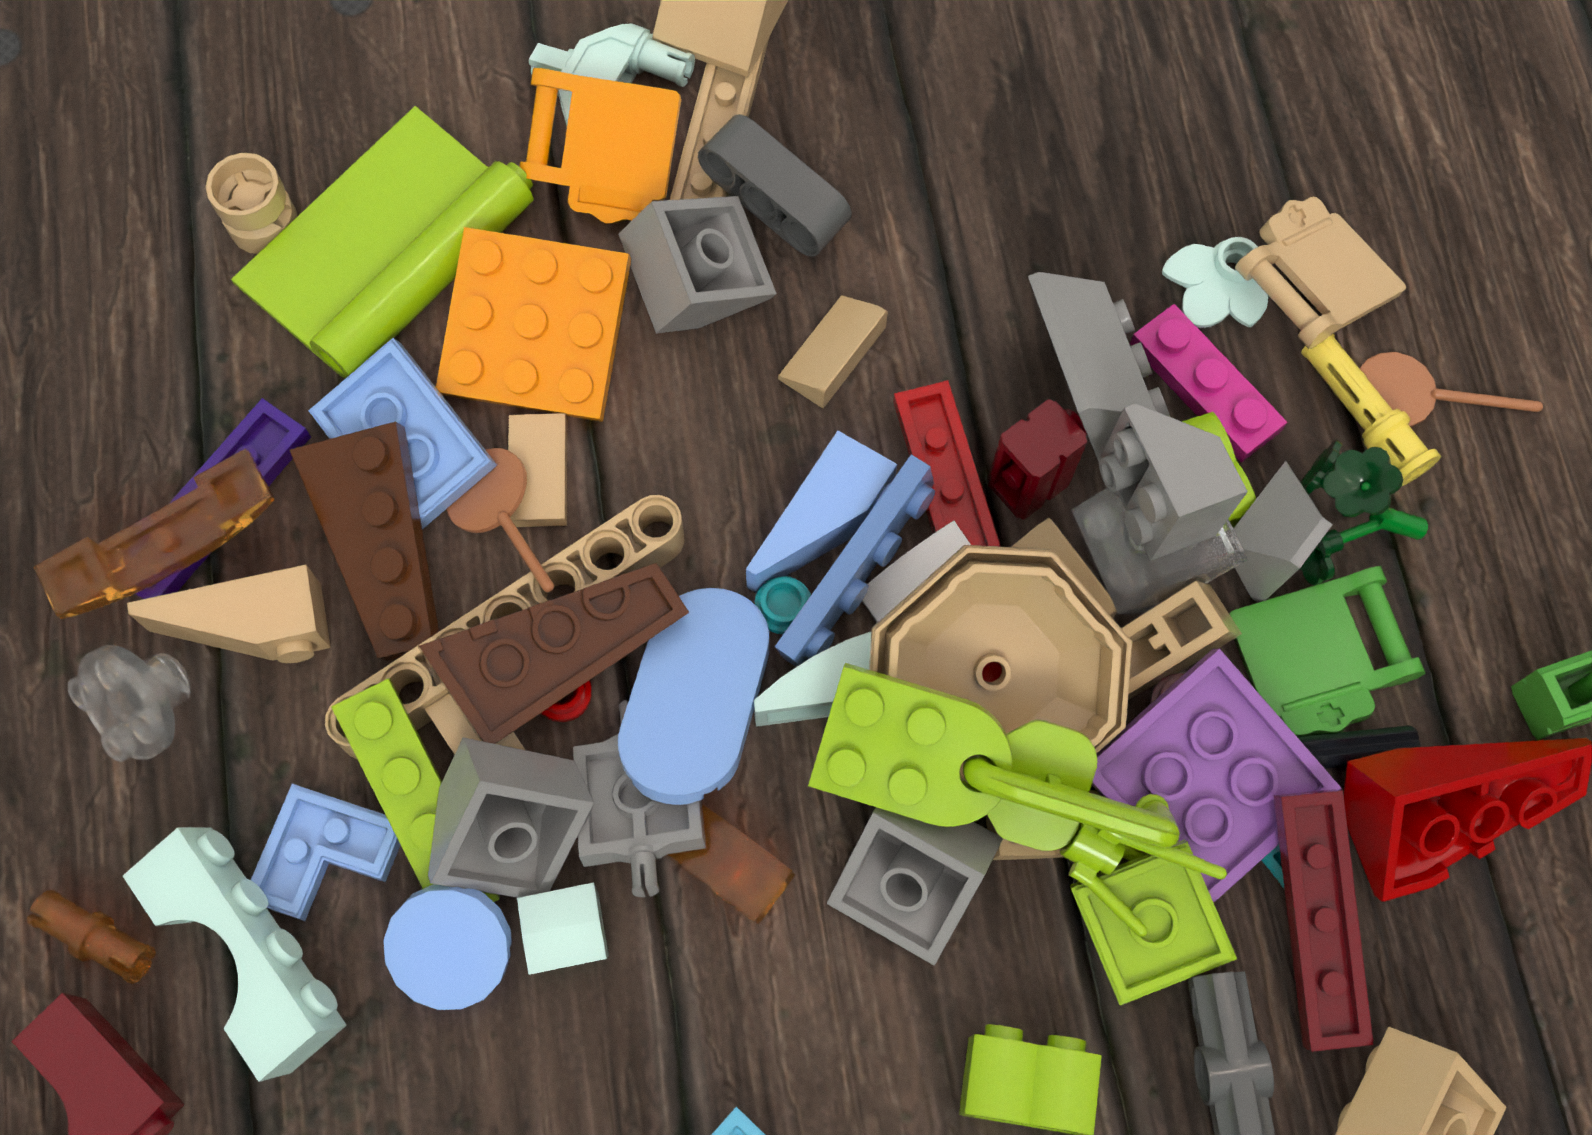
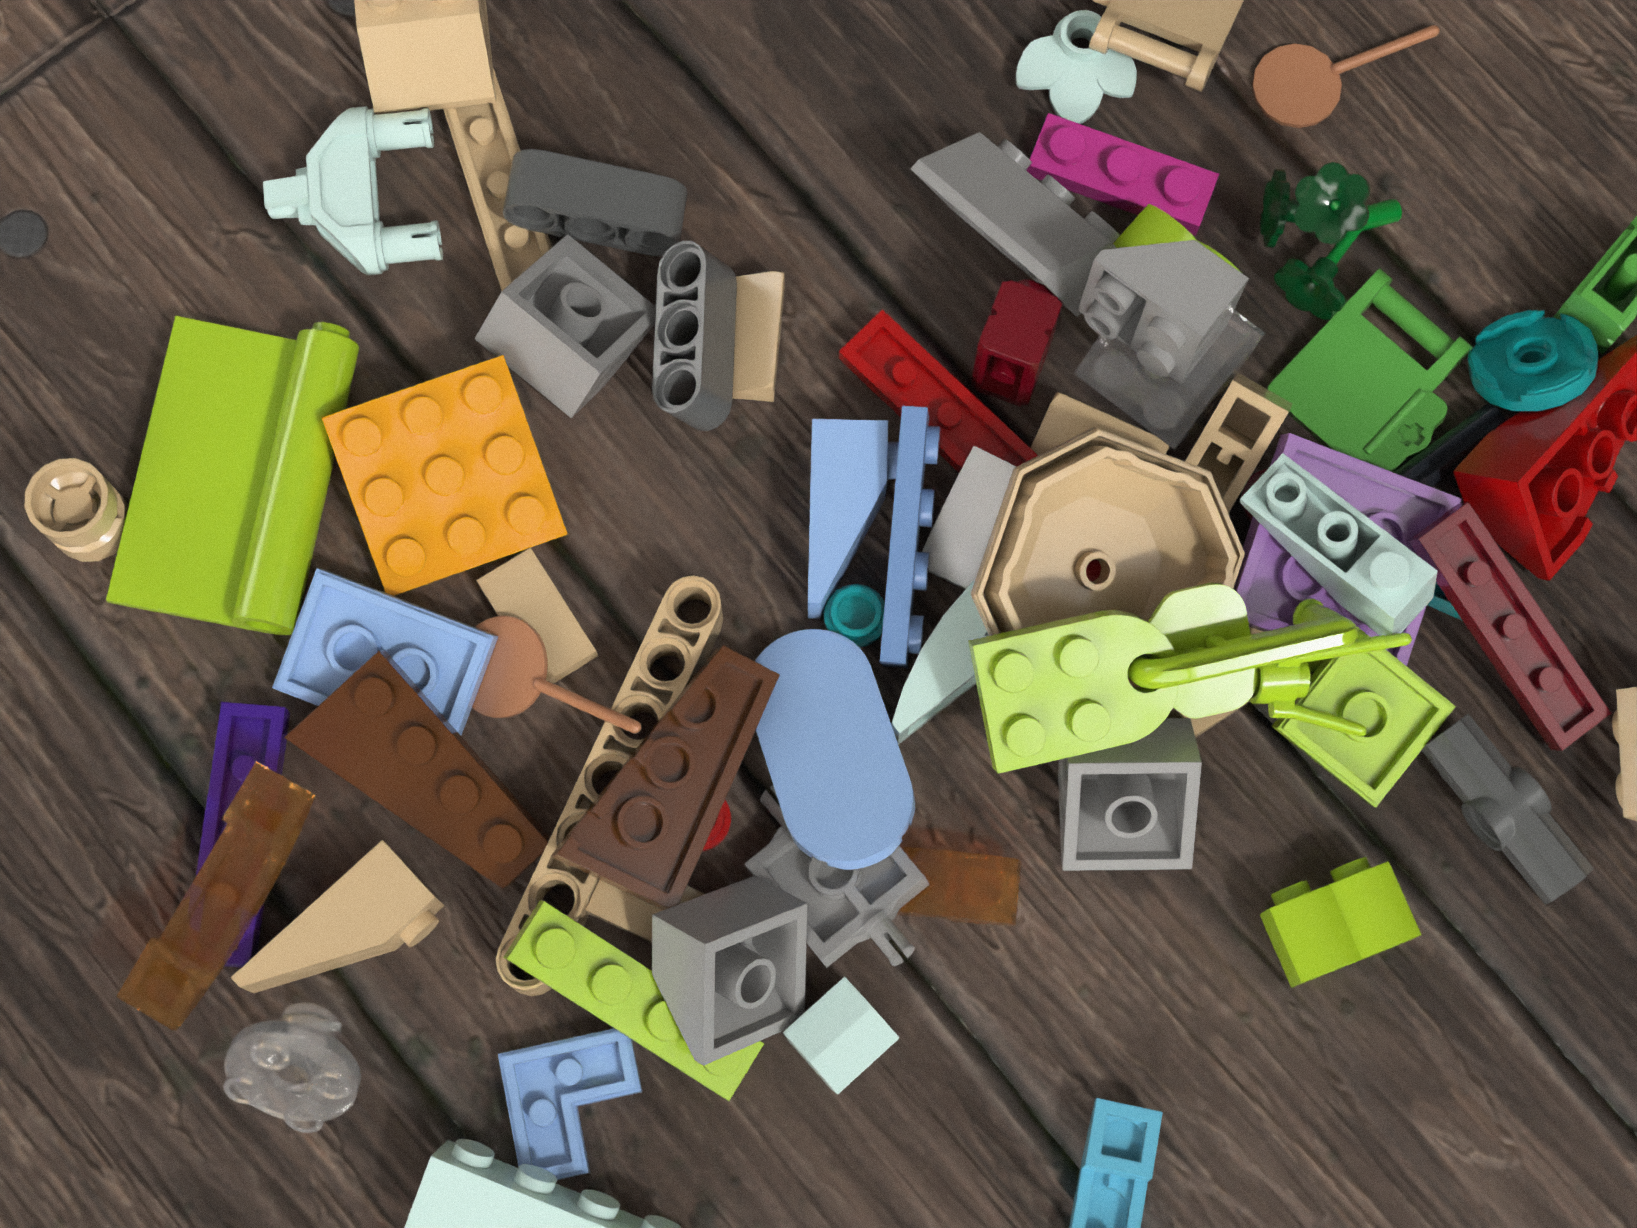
camera: 30 degrees left, 5 degrees up
(447, 947) = (747, 1114): light blue tile -> none
(614, 143) = (412, 250): light orange piece -> none
(787, 323) = (694, 336): none -> dark grey beam
(1210, 768) = (1342, 548): none -> light aqua slope
(1278, 534) = (1281, 292): light grey slope -> none
(1381, 424) = (1310, 130): light yellow pin -> none
(1471, 711) = (1533, 361): none -> teal plate

